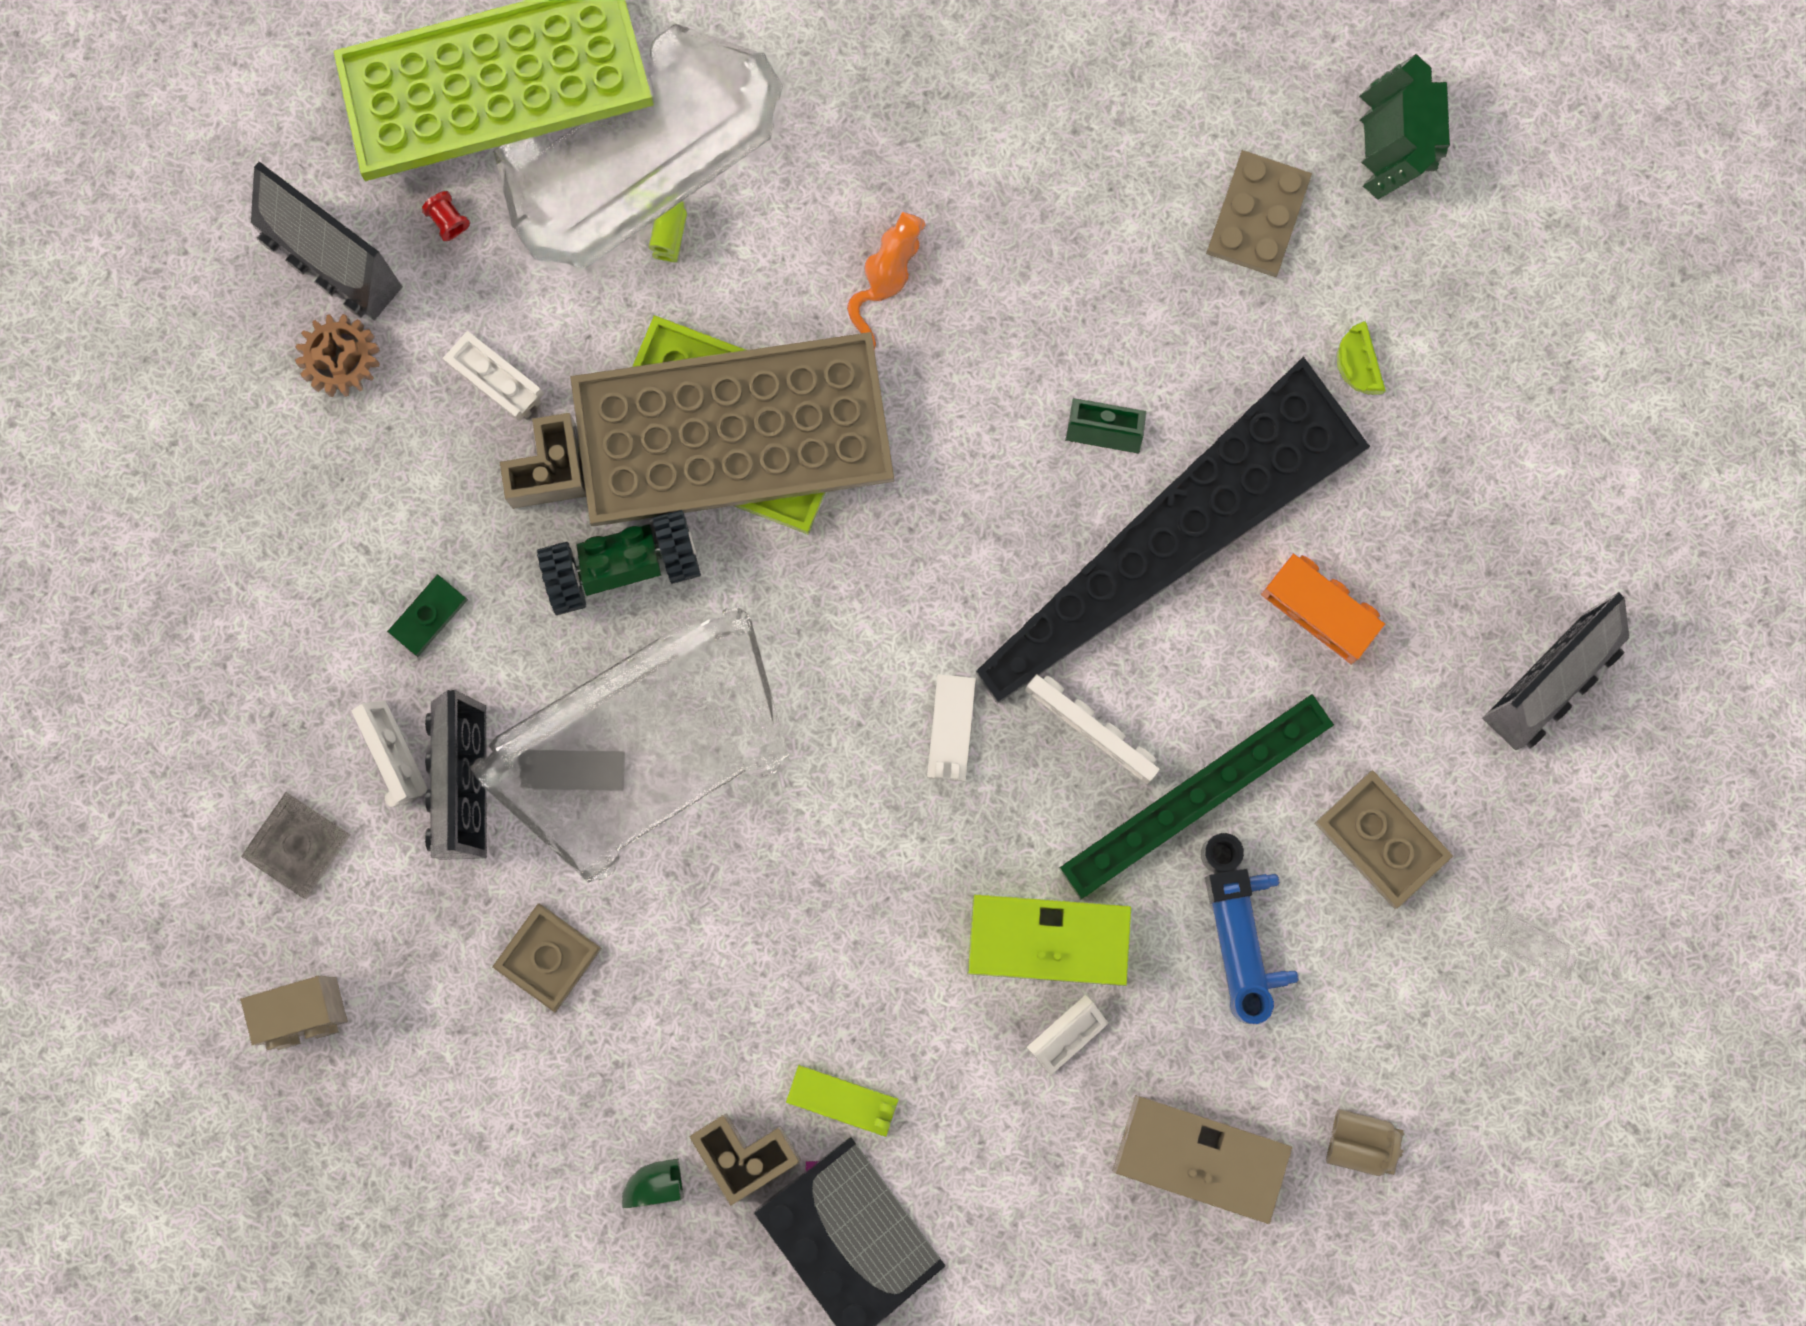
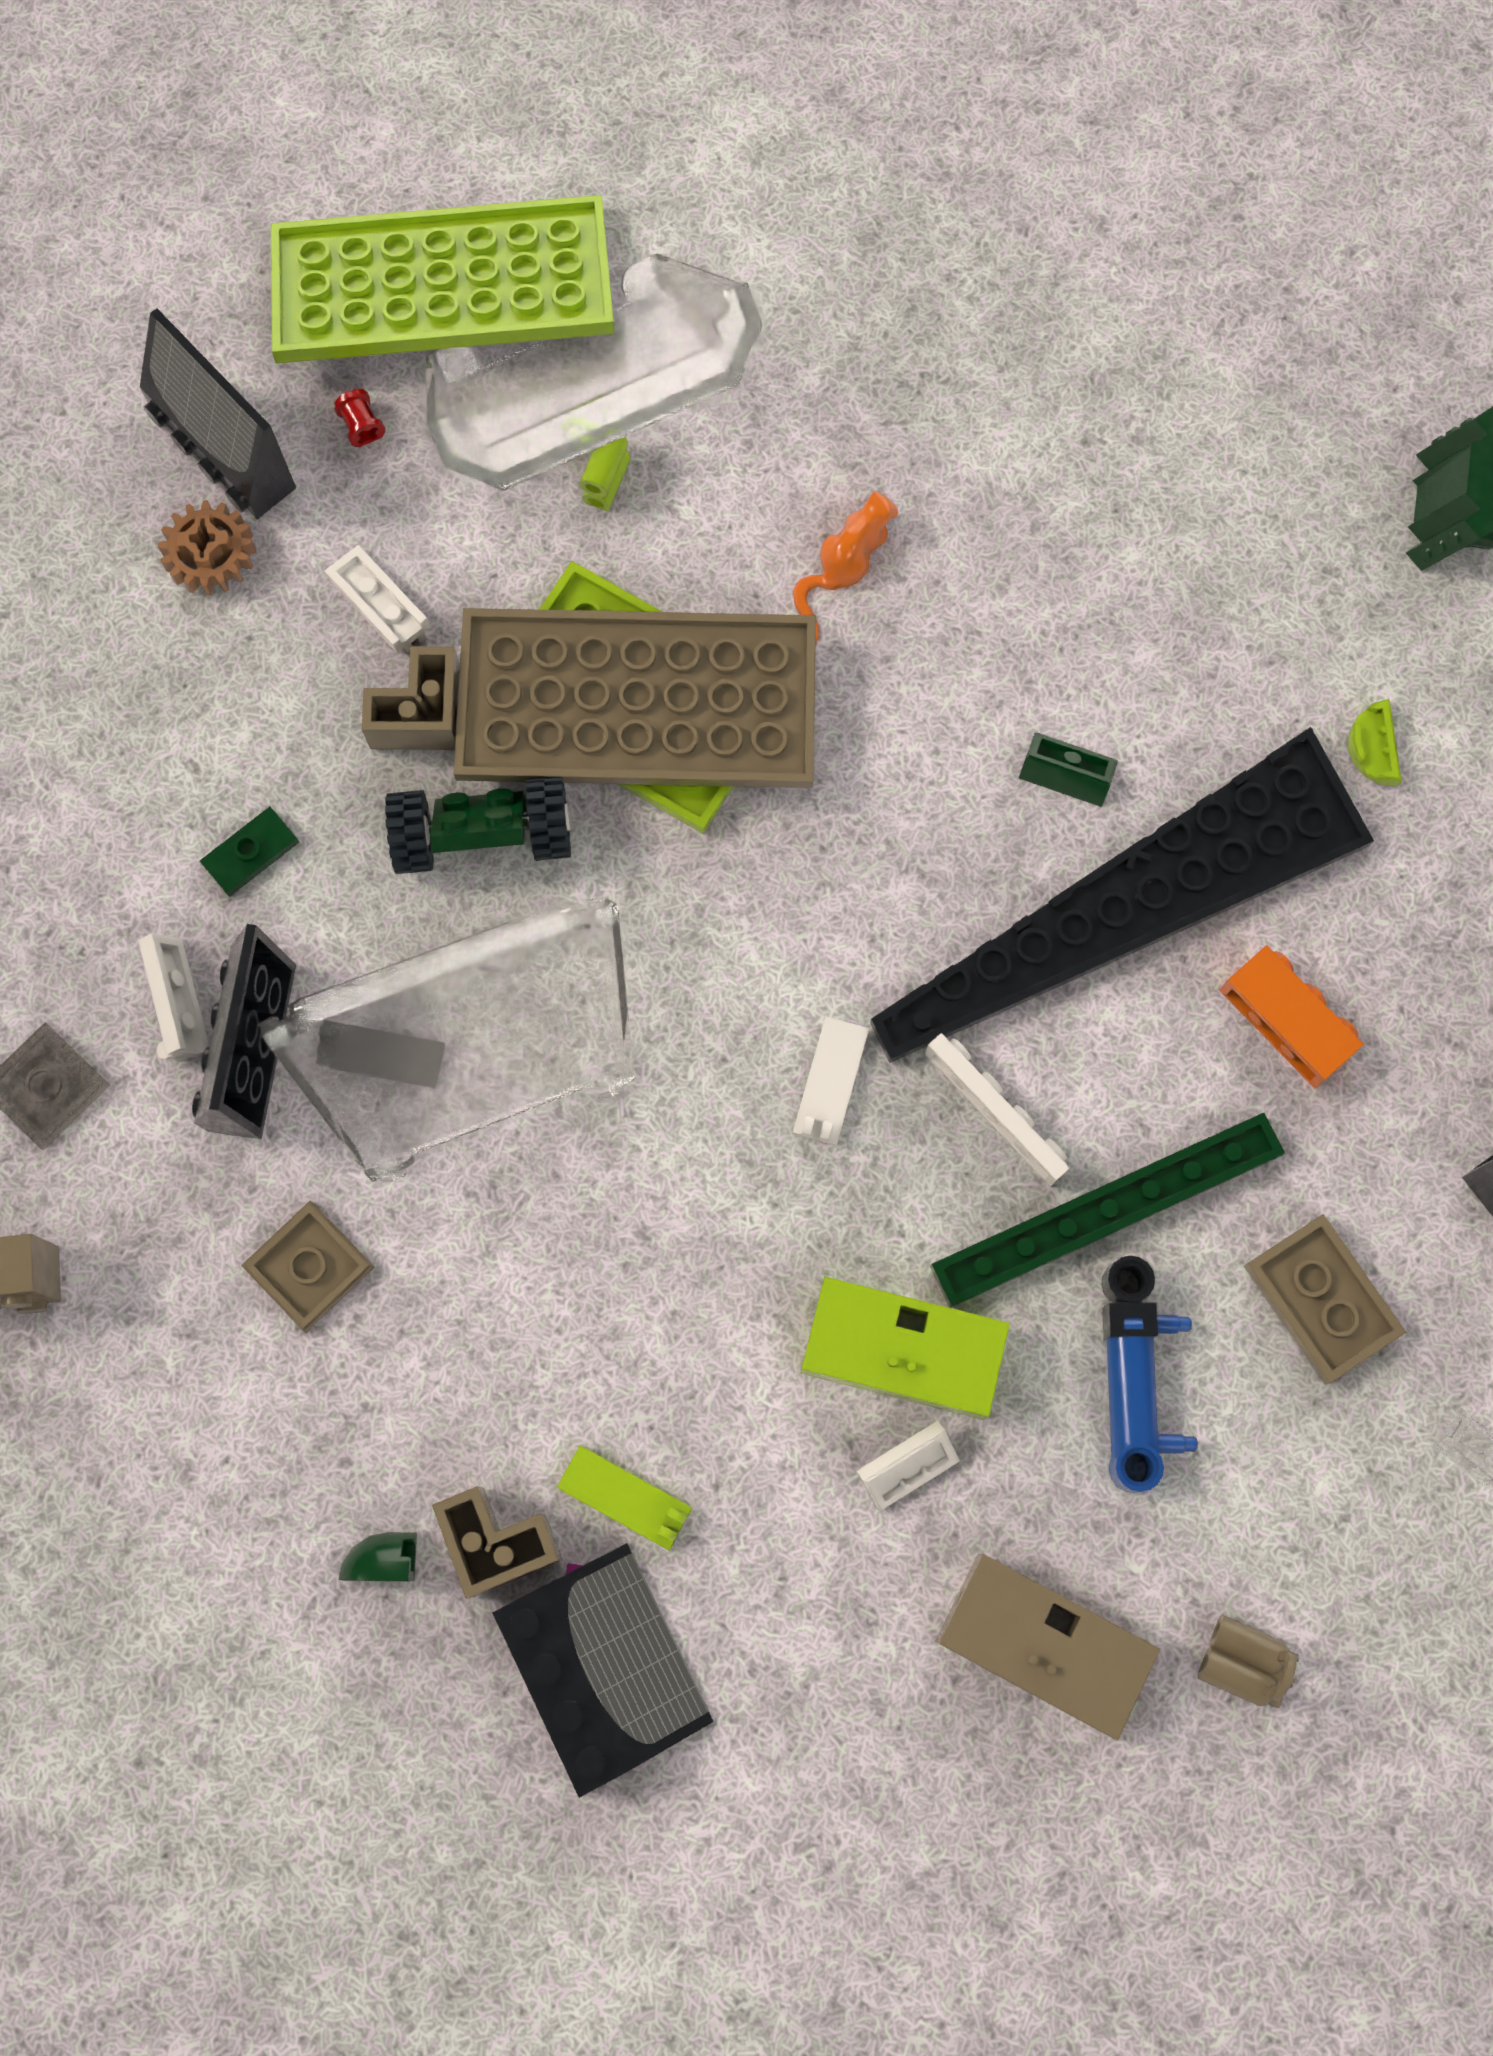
camera: 10 degrees right, 5 degrees down
(1259, 213) = (1282, 563): dark tan plate -> none

